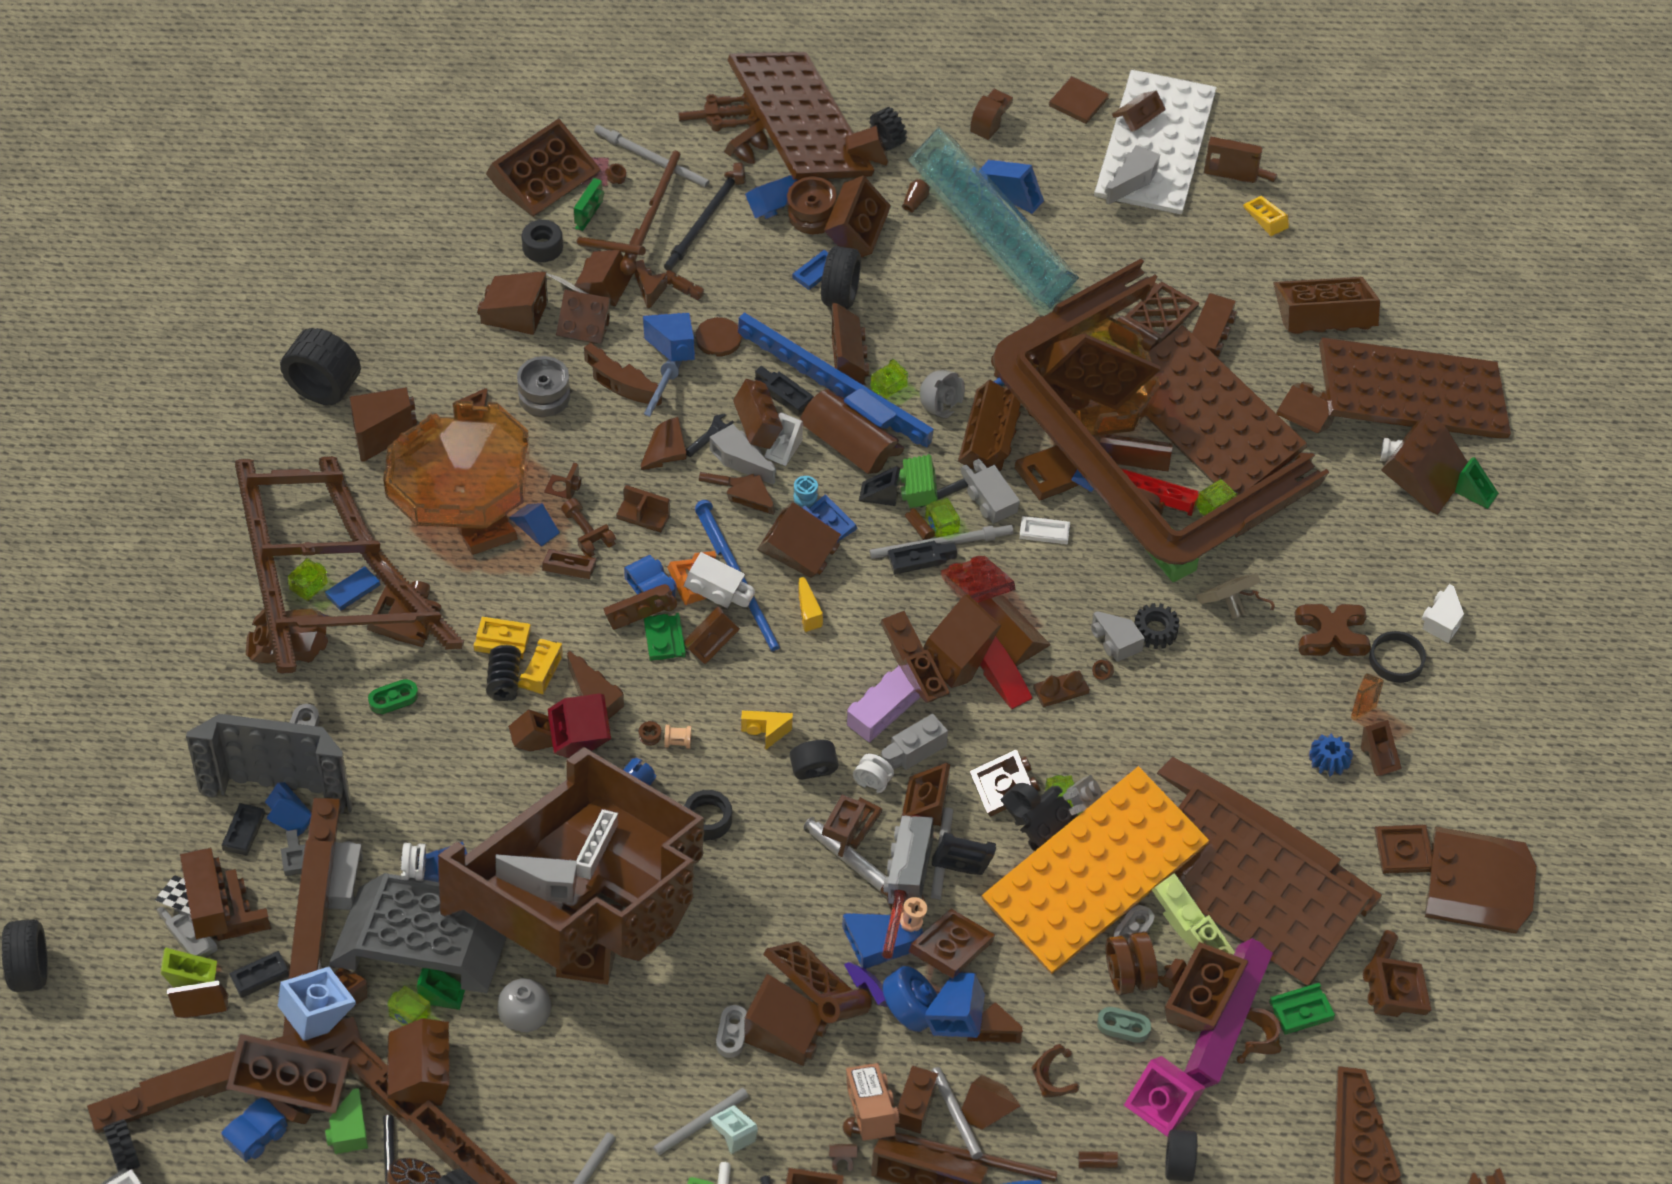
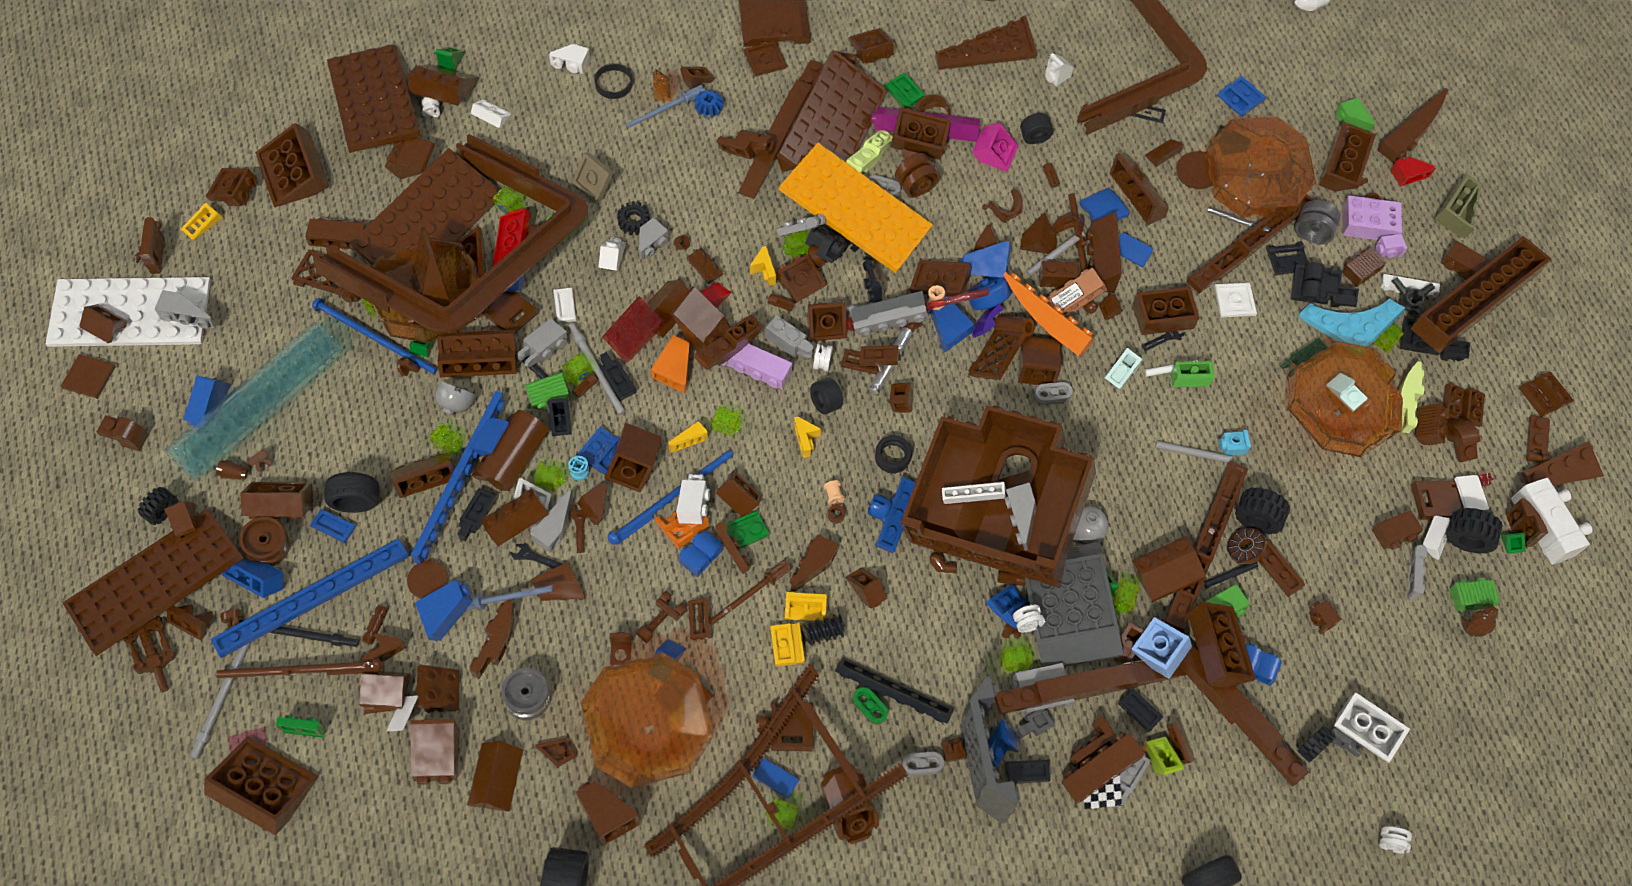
camera: 110 degrees left, 10 degrees up
(381, 857) = (1016, 658): none -> clear neon green brick
(401, 723) = (895, 690): none -> black plate
(466, 352) = (495, 776): none -> reddish brown slope
(546, 250) = (359, 765): black tyre -> none
(579, 724) = (857, 554): dark red slope -> none
(592, 641) = (771, 577): none -> reddish brown piece
(609, 245) = (352, 688): reddish brown bar -> none
(615, 173) = (253, 716): reddish brown plate -> none
(644, 509) = (631, 580): reddish brown panel -> none
(699, 1122) = (1121, 394): light grey bar -> none
(733, 235) = (309, 598): none -> blue plate
(786, 846) = (901, 397): none -> reddish brown brick
(805, 461) = (549, 477): none -> clear neon green brick
(816, 649) = (726, 421): none -> clear neon green brick
(846, 1050) = (1051, 318): none -> orange slope
(920, 609) = (673, 364): none -> orange slope
(921, 218) = (257, 459): none -> reddish brown tile
(978, 756) = (778, 301): none -> reddish brown piece
(993, 1149) = (1070, 221): none -> reddish brown helmet
(1044, 750) = (763, 264): none -> yellow slope
(1104, 588) = (611, 253): none -> white slope
(1124, 1023) = (954, 179): sand green plate -> none
(1239, 772) = (747, 144): none -> reddish brown plate
(1308, 244) = (232, 186): none -> reddish brown plate
(1332, 630) = (604, 117): reddish brown piece -> none
(1348, 731) = (686, 97): none -> sand blue piece
(1374, 515) = (490, 113): none -> white slope

